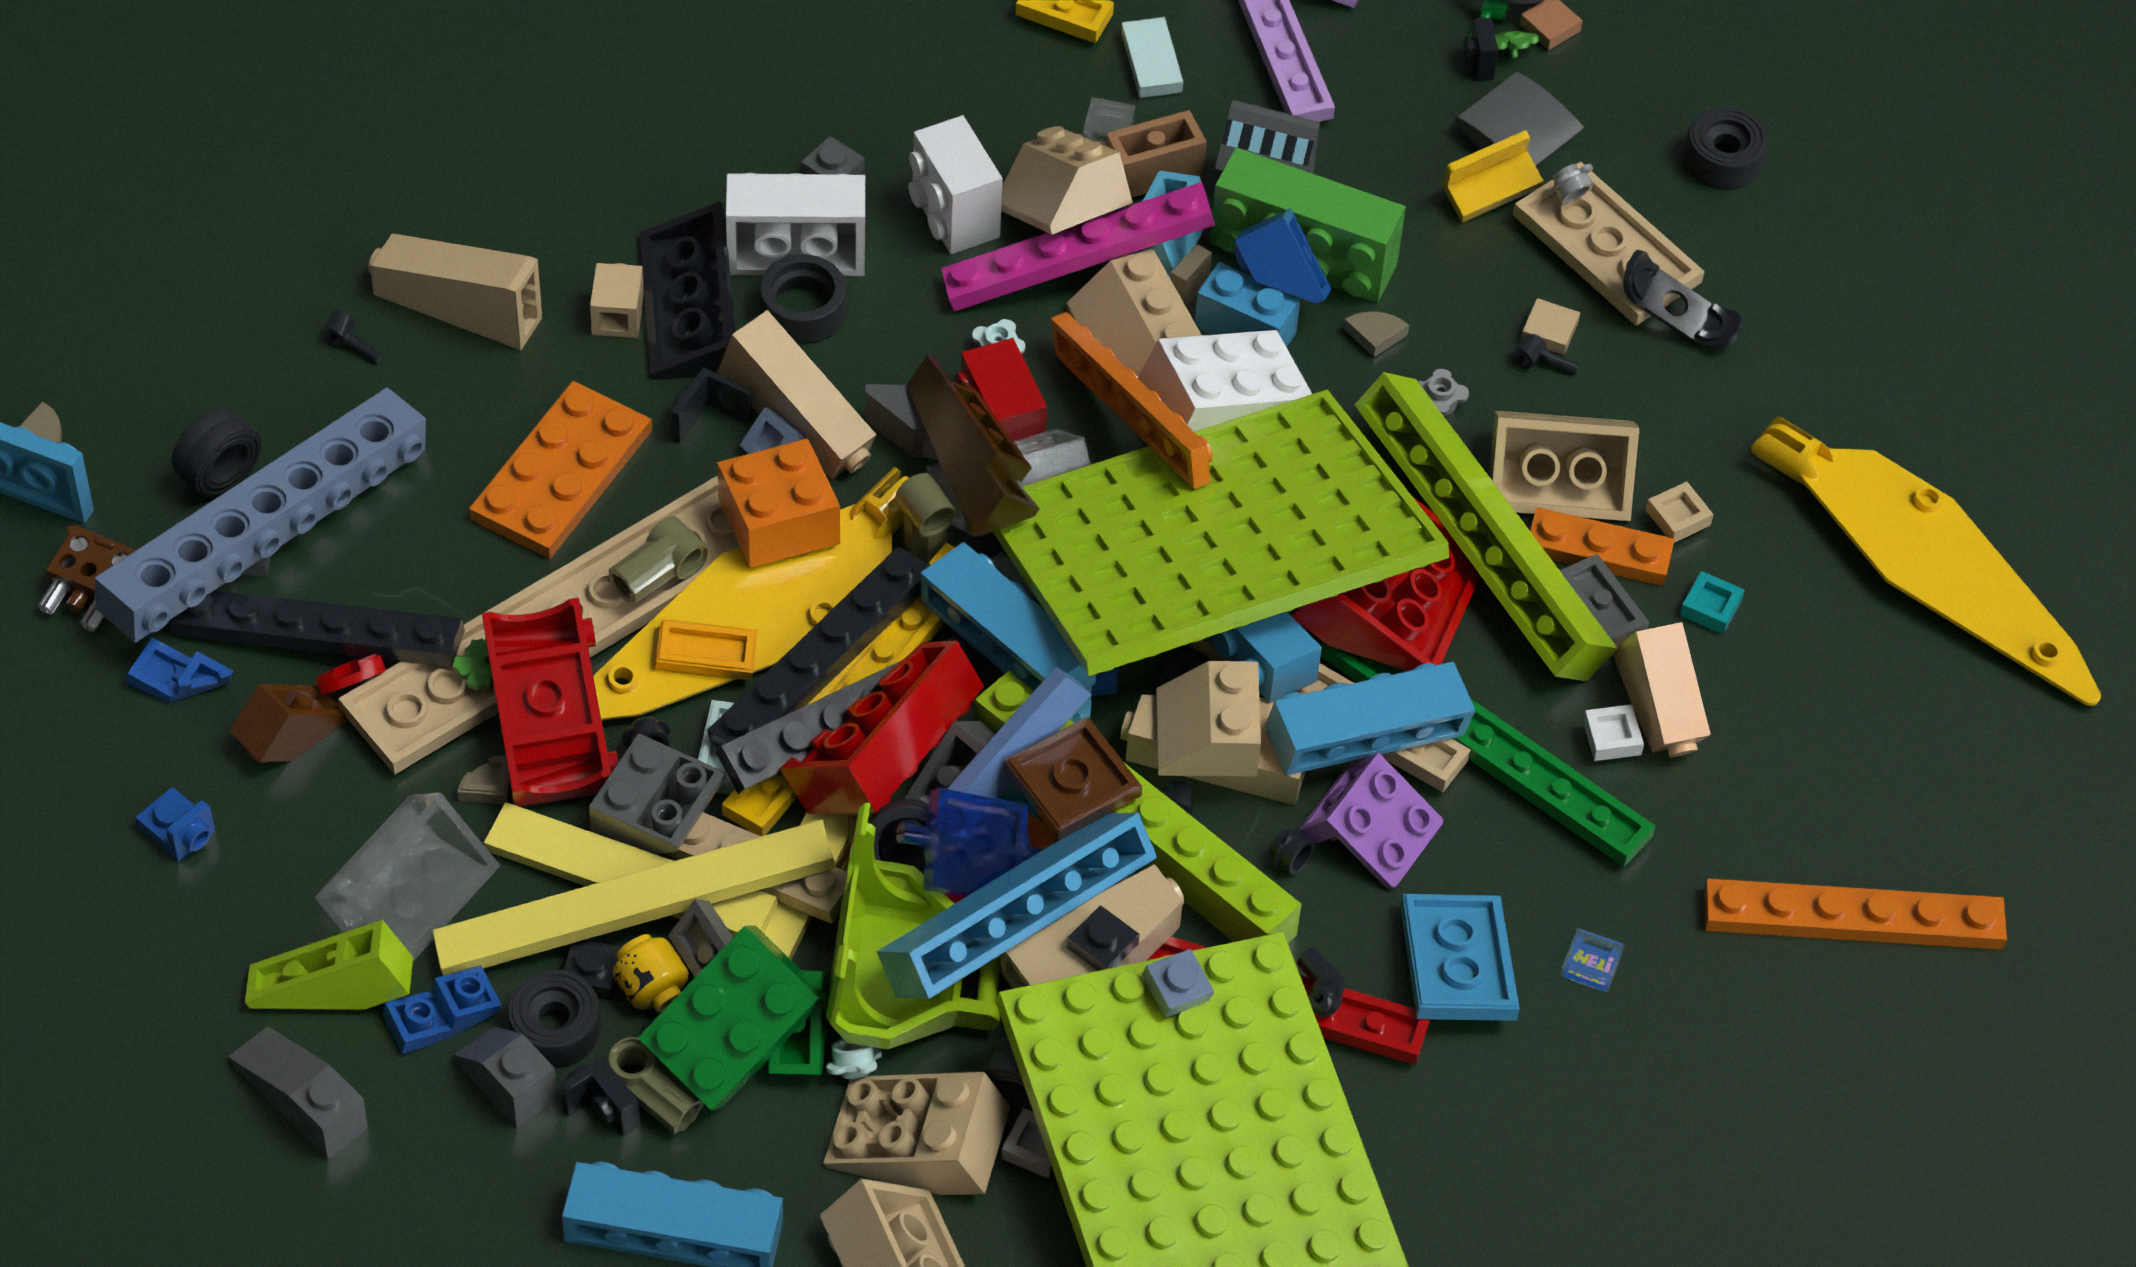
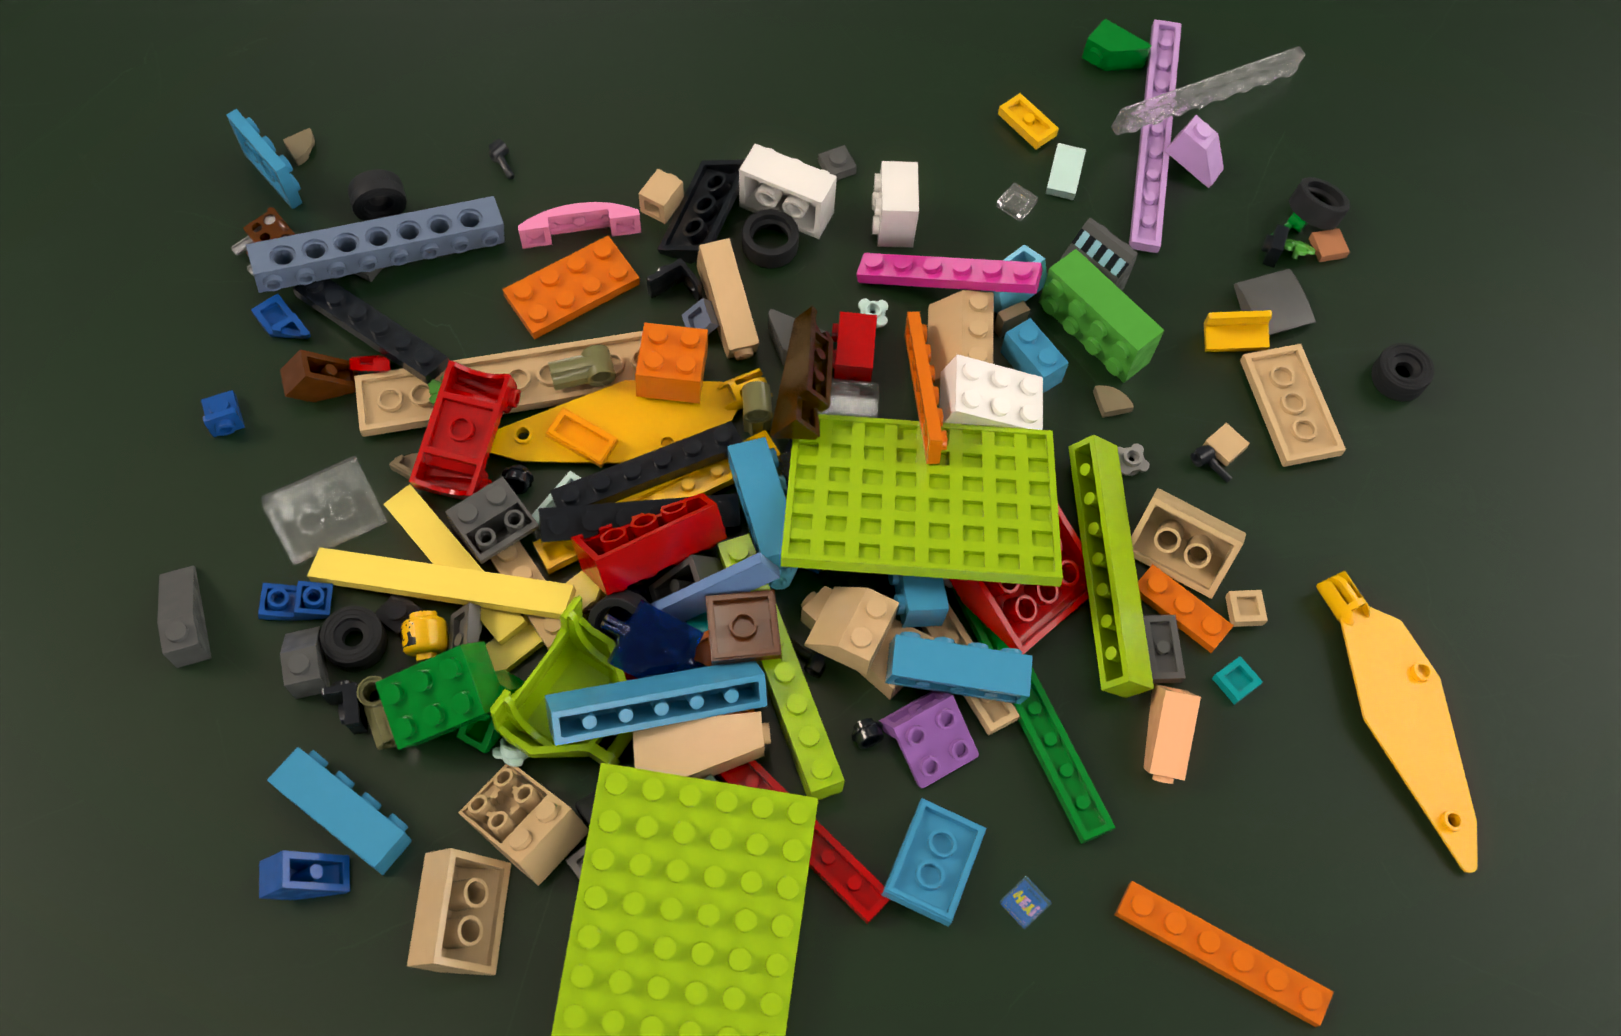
camera: 25 degrees right, 10 degrees up
(334, 973) = (246, 550): lime slope -> none
(461, 285) = (576, 152): tan slope -> none
(570, 352) = (578, 217): none -> bright pink slope
(1064, 181) = (960, 228): tan slope -> none
(1103, 940) = (695, 752): black plate -> none
(1159, 144) = (1036, 229): medium nougat brick -> none
(1177, 983) = (721, 809): sand blue plate -> none
(1282, 257) = (1068, 332): blue slope -> none
(1327, 983) = (833, 844): black arm -> none
(1571, 183) = (1285, 356): light grey plate -> none
(1613, 732) = (1122, 745): white plate -> none
(1702, 321) = (1328, 482): black piece -> none

